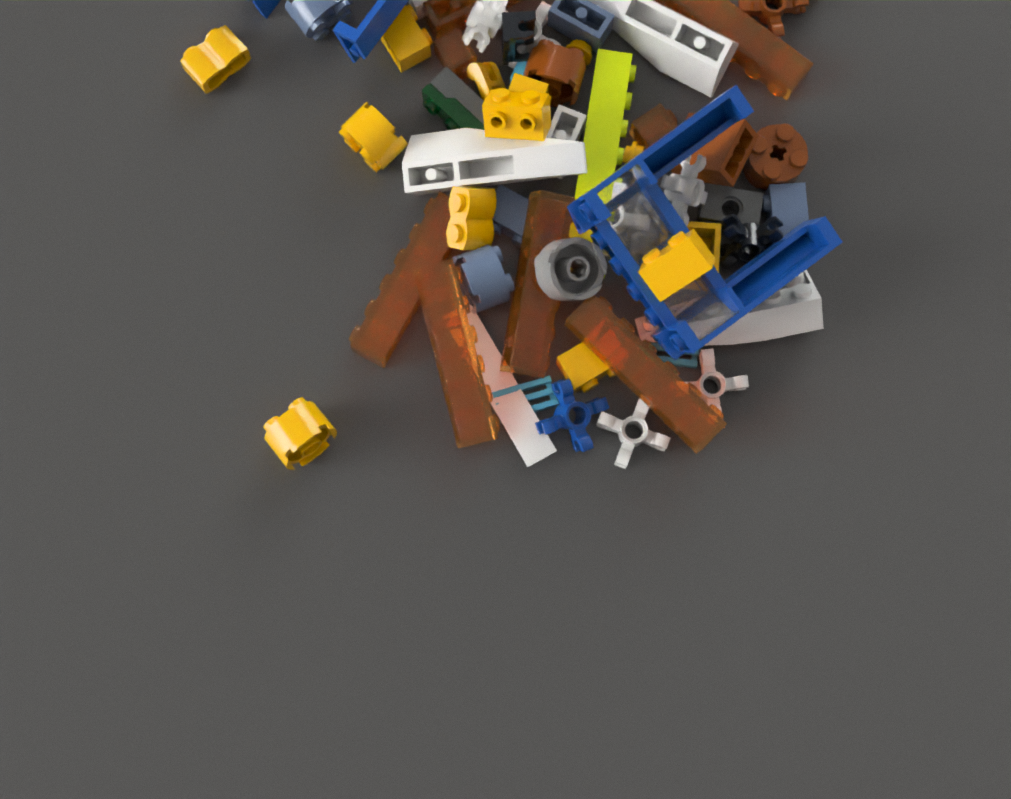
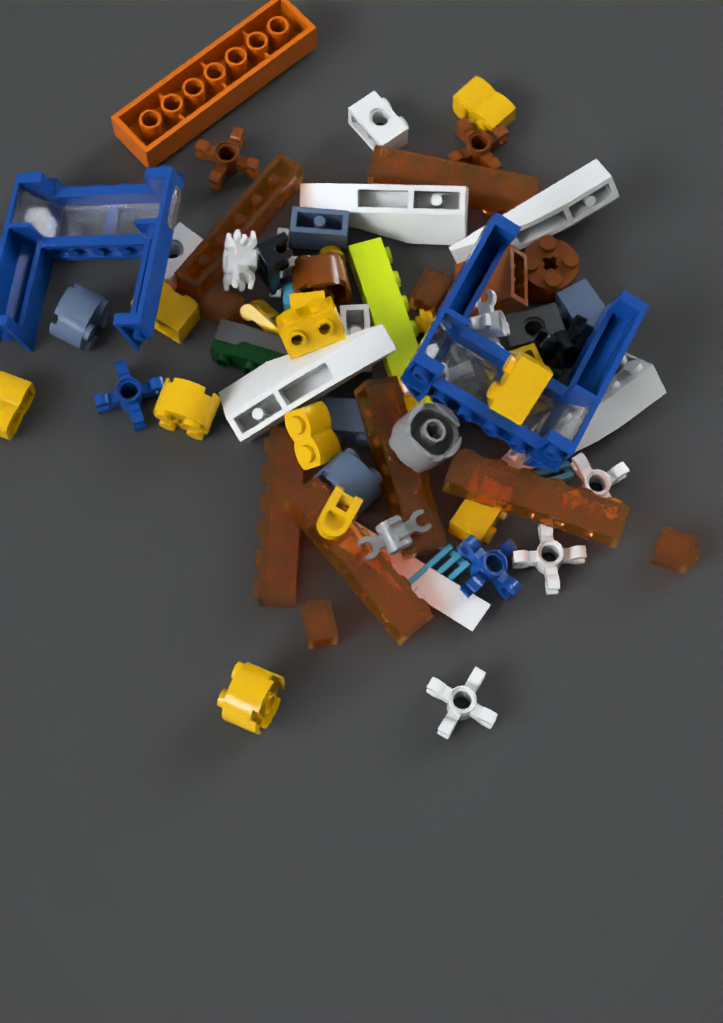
camera: 25 degrees left, 10 degrees down
(308, 98) = (107, 401): none -> blue pin
(394, 394) = (319, 624): none -> clear orange brick
(446, 311) = (332, 520): none -> yellow plate
(496, 347) = (394, 535): none -> light grey pin
(497, 519) = (481, 714): none -> white pin
(753, 481) = (675, 550): none -> clear orange brick
(806, 100) = (554, 208): none -> white wedge

